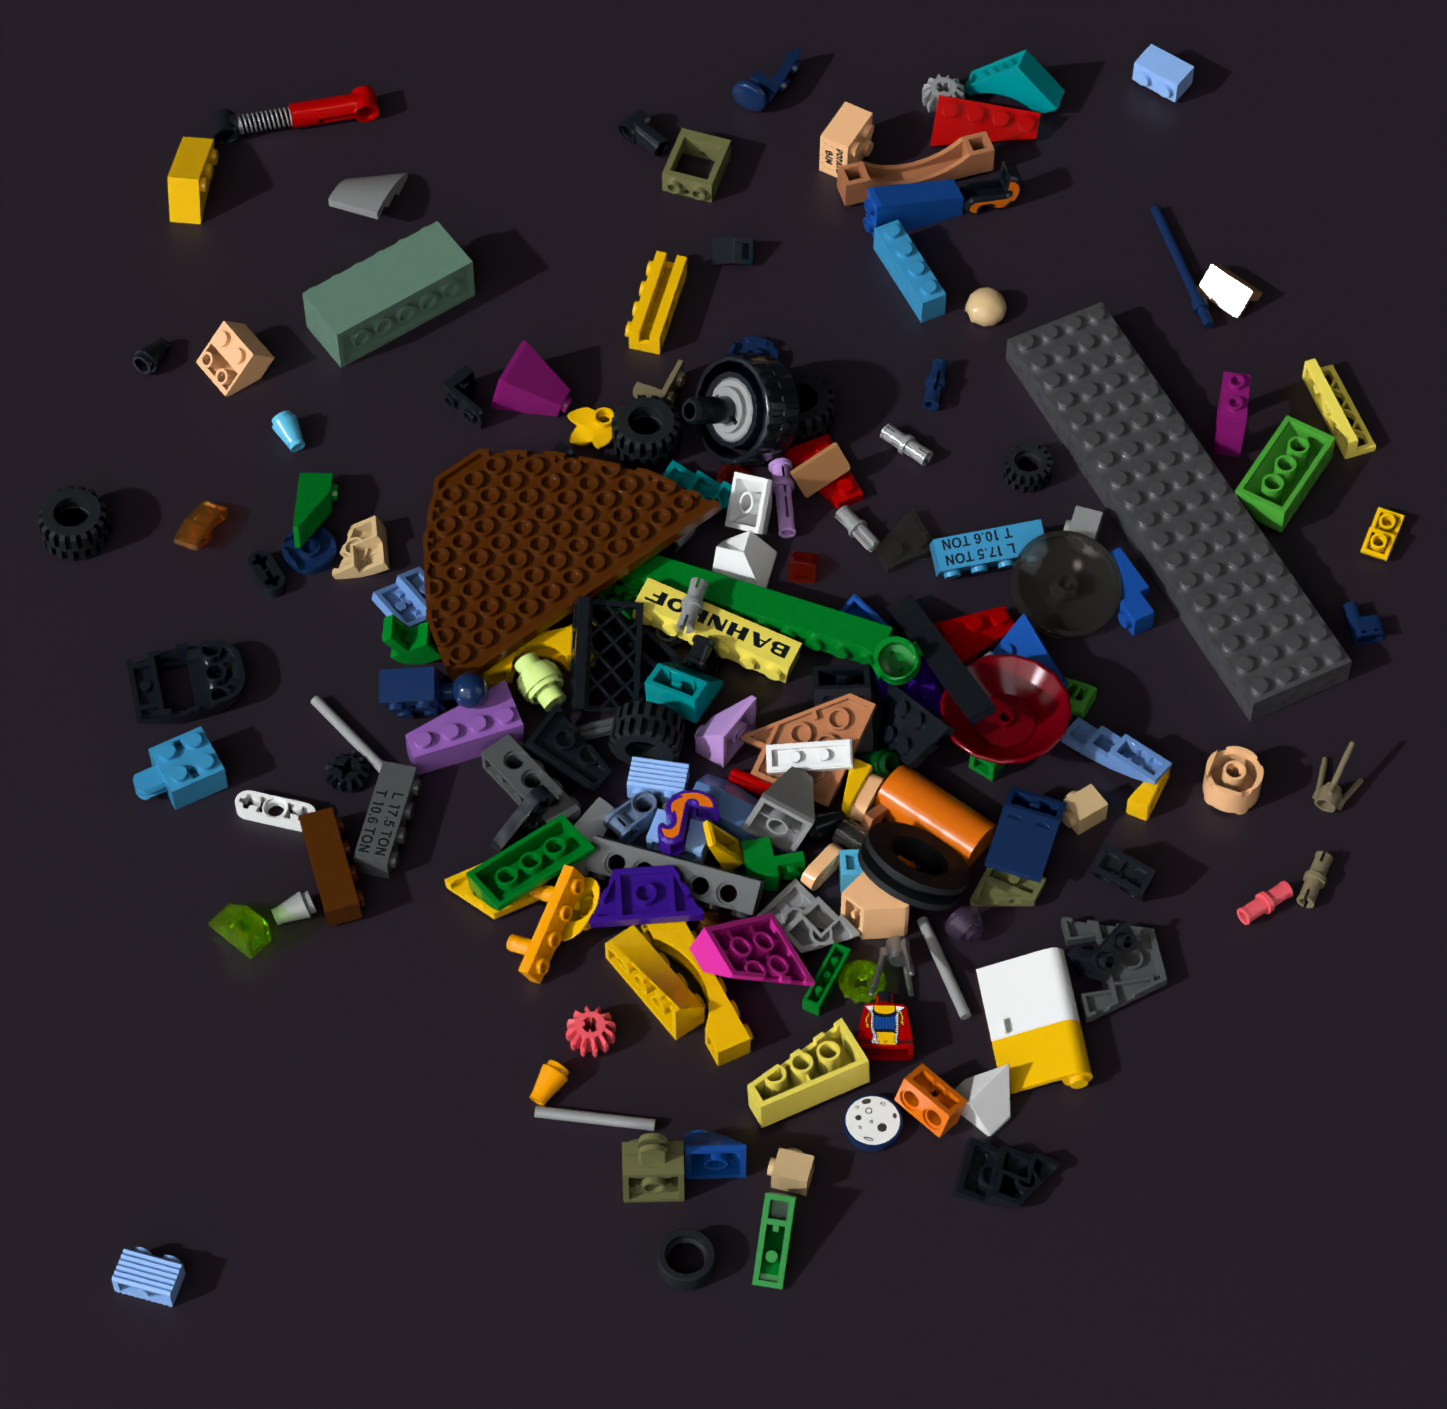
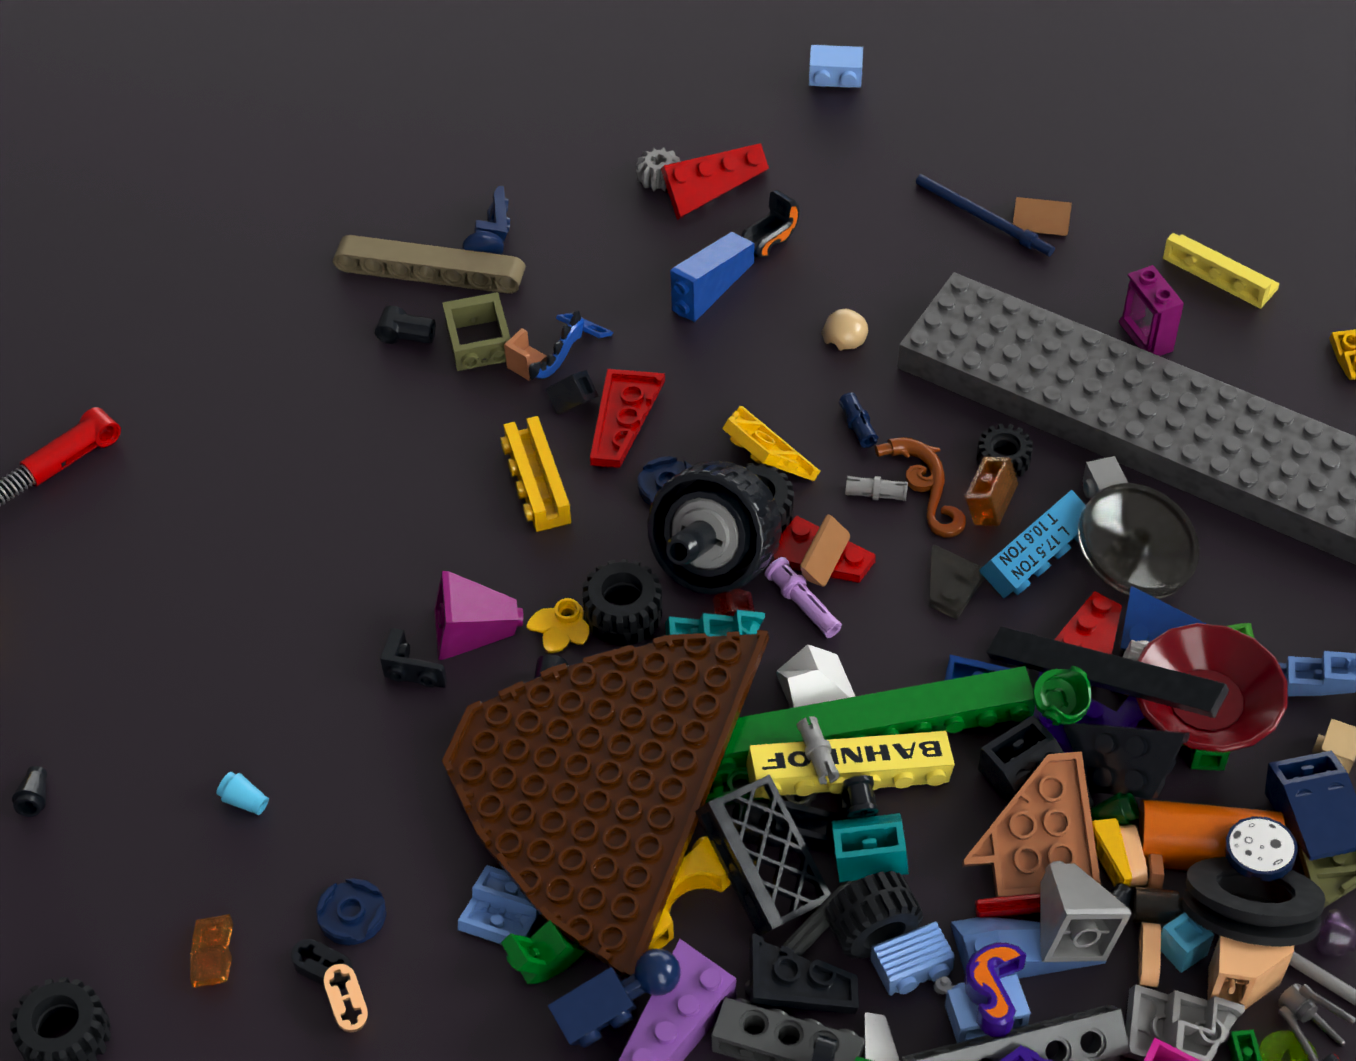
camera: 30 degrees left, 5 degrees down
(234, 358) = (129, 747): light nougat slope -> none
(259, 600) = (353, 994): none -> light nougat beam
(313, 504) = (325, 857): green slope -> none
(364, 550) = (413, 881): tan slope -> none
(367, 194) = (163, 511): light grey slope -> none
(389, 294) = (257, 598): sand green brick -> none
(540, 681) = (711, 920): yellowish green piece -> none
(628, 821) = (918, 1020): sand blue piece -> none
(676, 379) = (590, 562): dark tan bracket -> none
(700, 89) = (429, 264): none -> dark tan beam
(717, 203) = (521, 355): none -> nougat panel
(722, 734) = (942, 867): lavender slope -> none
(723, 846) = (1043, 994): yellow slope -> none
(749, 503) = (786, 616): white slope -> none
(757, 287) = (622, 411): none -> red wing
(759, 204) = (569, 335): none -> blue piece
(762, 864) = (1086, 987): green brick -> none
(802, 567) = (874, 656): clear red slope -> none
(810, 756) = (1051, 844): white tile -> none
(844, 366) = (766, 445): none -> yellow wing
(846, 138) = (608, 244): light nougat brick -> none
(857, 528) = (897, 590): light grey axle -> none
(909, 271) = (753, 330): dark azure brick -> none
(950, 836) = (1261, 848): none -> white tile
(953, 463) = (919, 483): none -> dark orange plant
(963, 158) = (724, 210): nougat arch -> none
(986, 490) = (991, 490): none -> clear orange brick
(1020, 79) = (719, 122): teal arch -> none
(1134, 609) = (1214, 531): blue slope -> none
(1285, 472) = (1238, 339): bright green slope -> none

